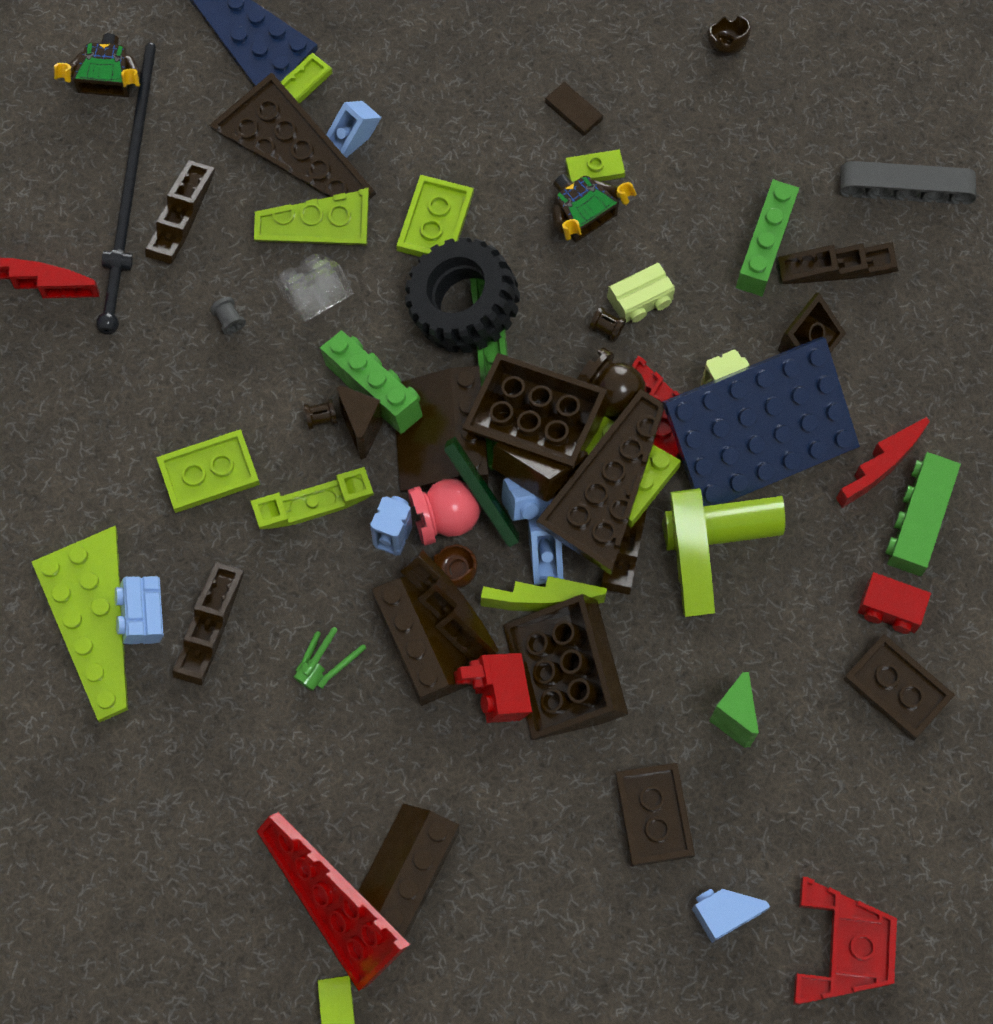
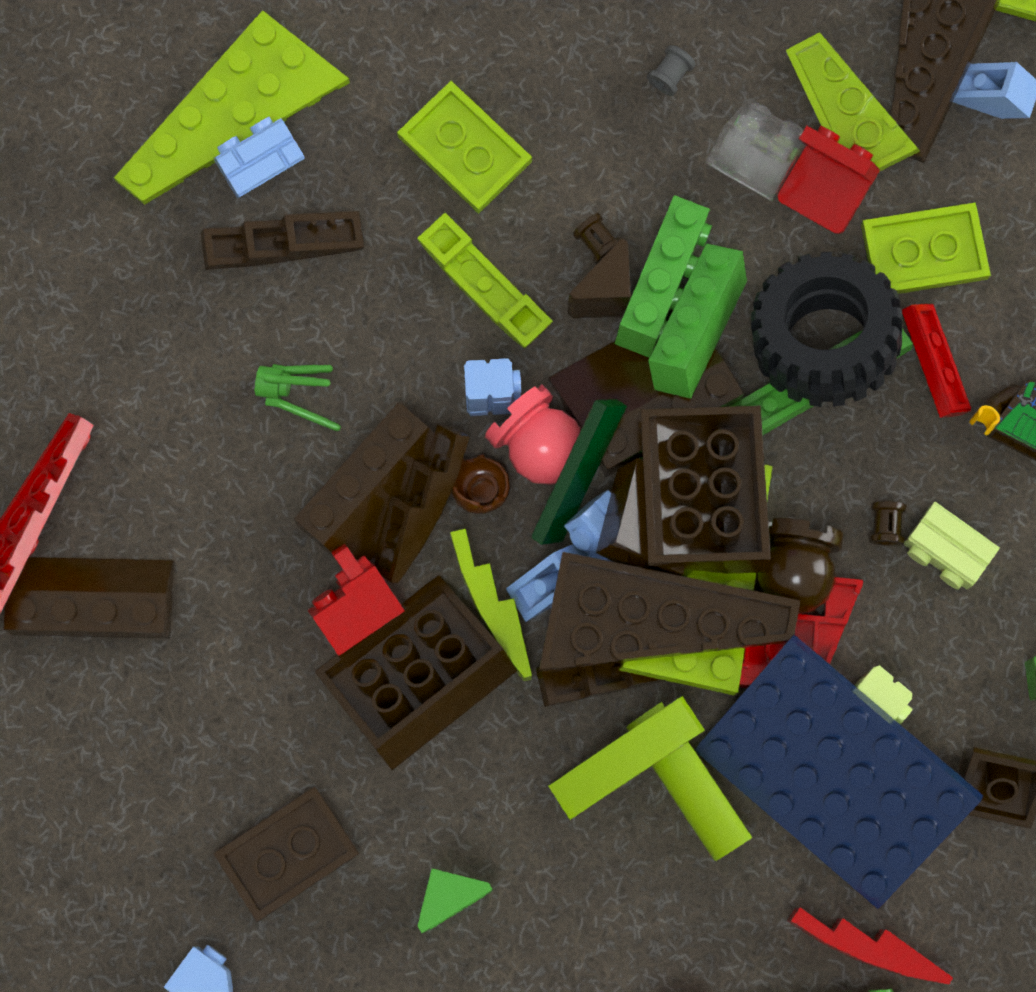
camera: 65 degrees right, 10 degrees up
(359, 251) = (828, 180): none -> red bracket
(415, 370) = (698, 321): none -> bright green brick
(518, 245) = (936, 360): none -> red tile

